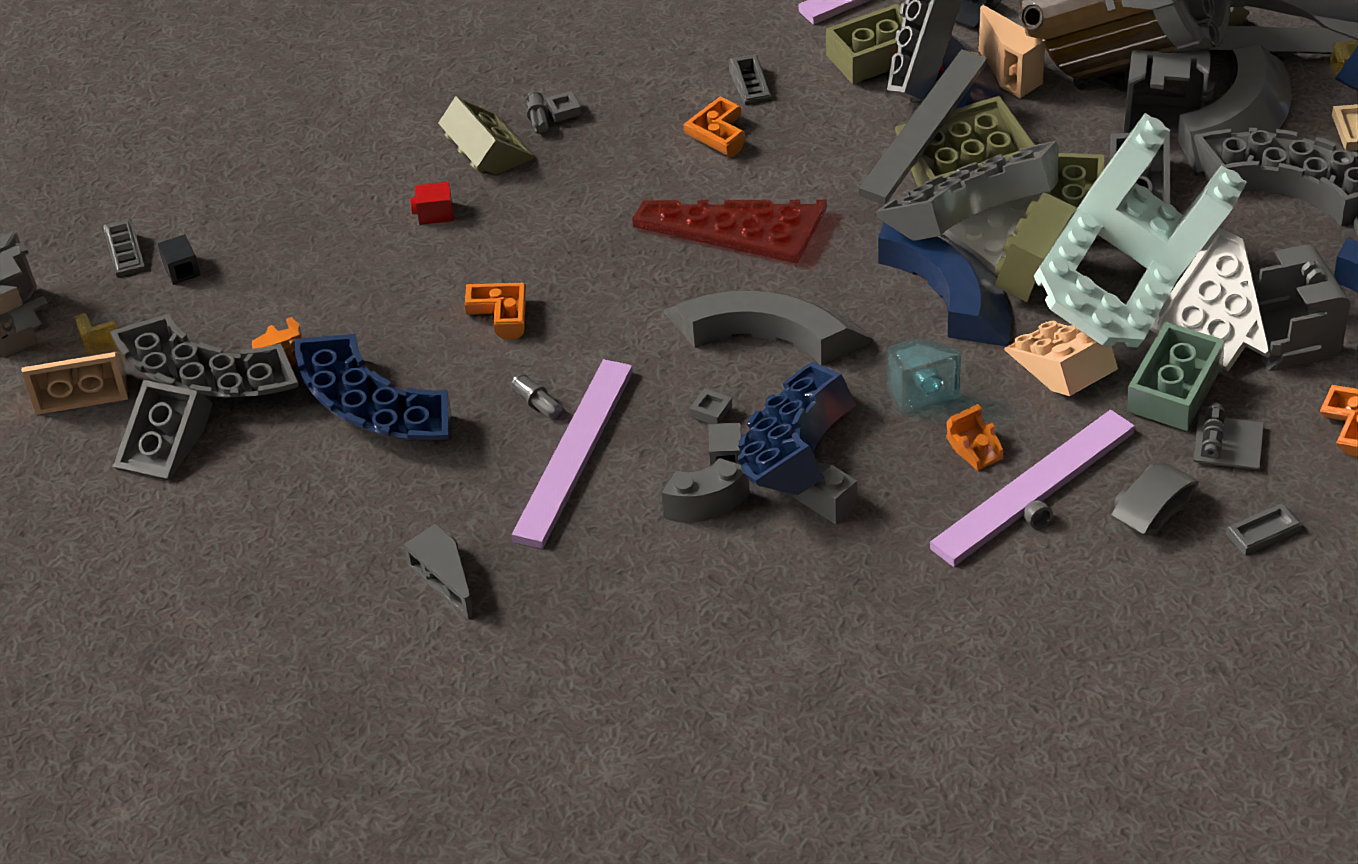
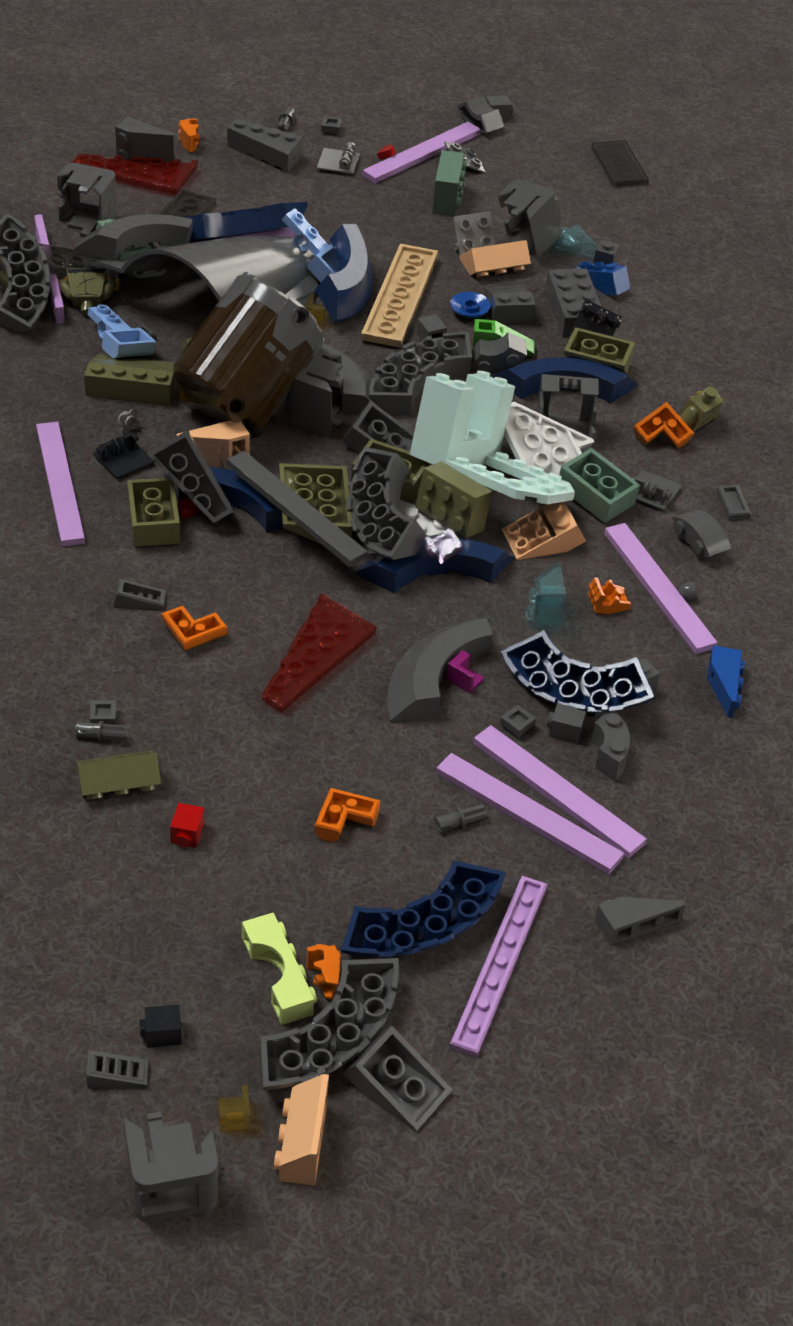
camera: 80 degrees left, 0 degrees up
(305, 298) = (267, 941): none -> yellowish green arch
(345, 478) = (498, 967): none -> lavender tile
(618, 471) = (560, 791): none -> lavender tile
(765, 344) = (460, 674): none -> magenta panel
(888, 576) = (724, 678): none -> blue slope
(935, 255) = (443, 545): none -> clear purple bracket

